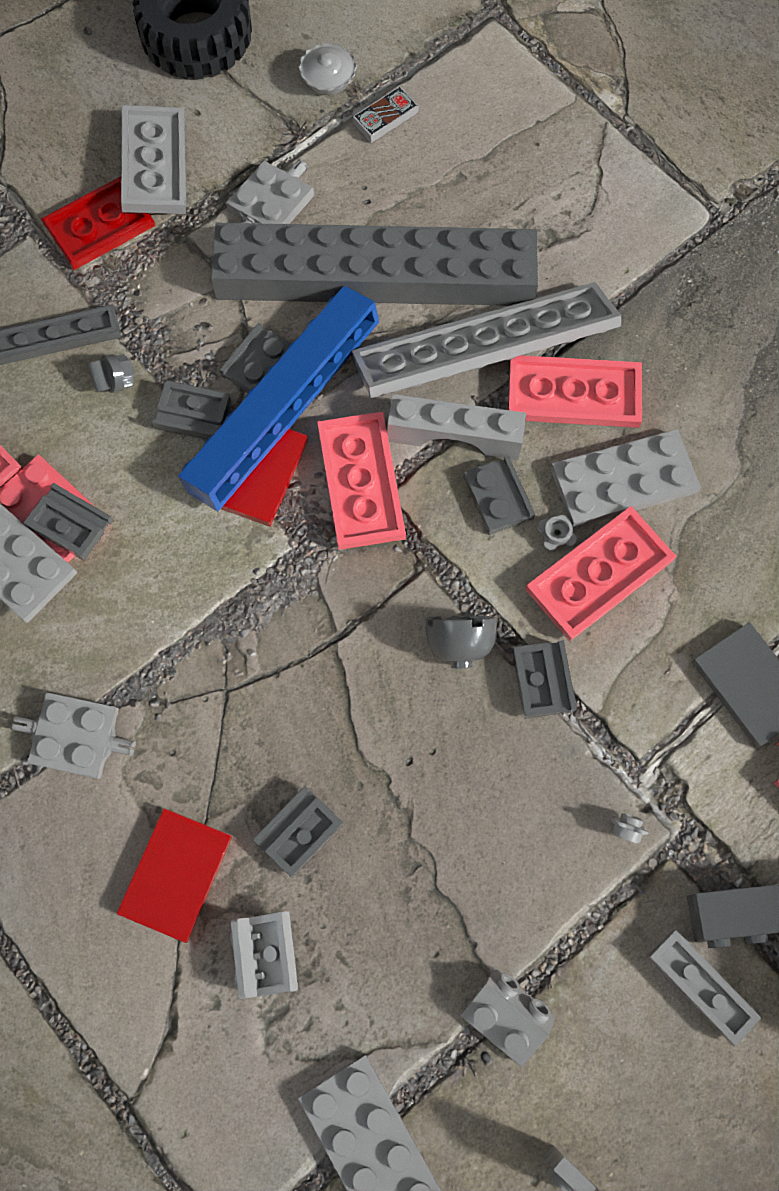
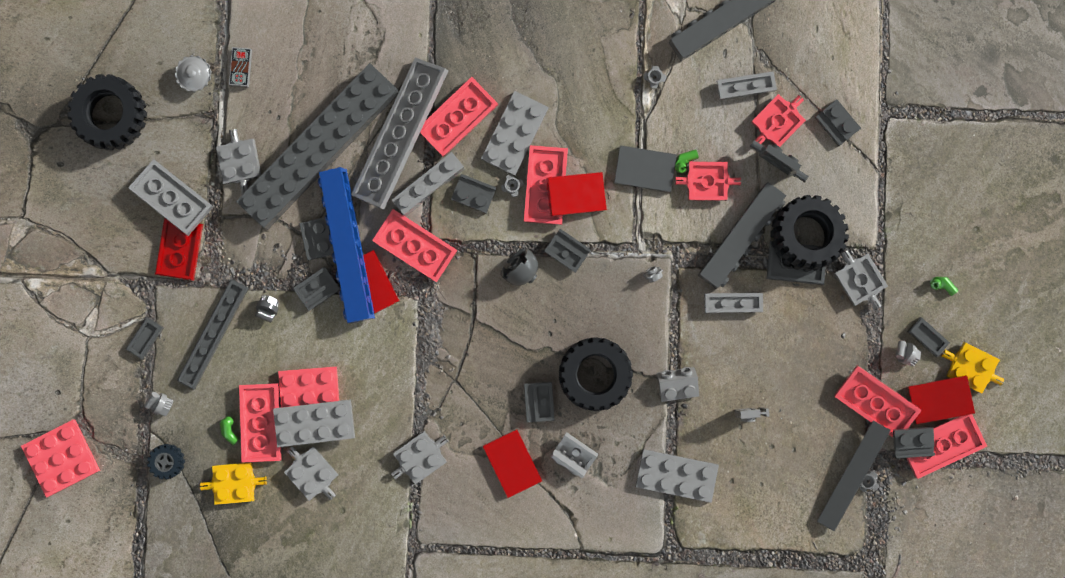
camera: 50 degrees left, 15 degrees up
(68, 521) = (326, 384): dark grey plate -> none
(463, 865) = (595, 400): none -> black tyre
(630, 620) = (576, 194): none -> red tile

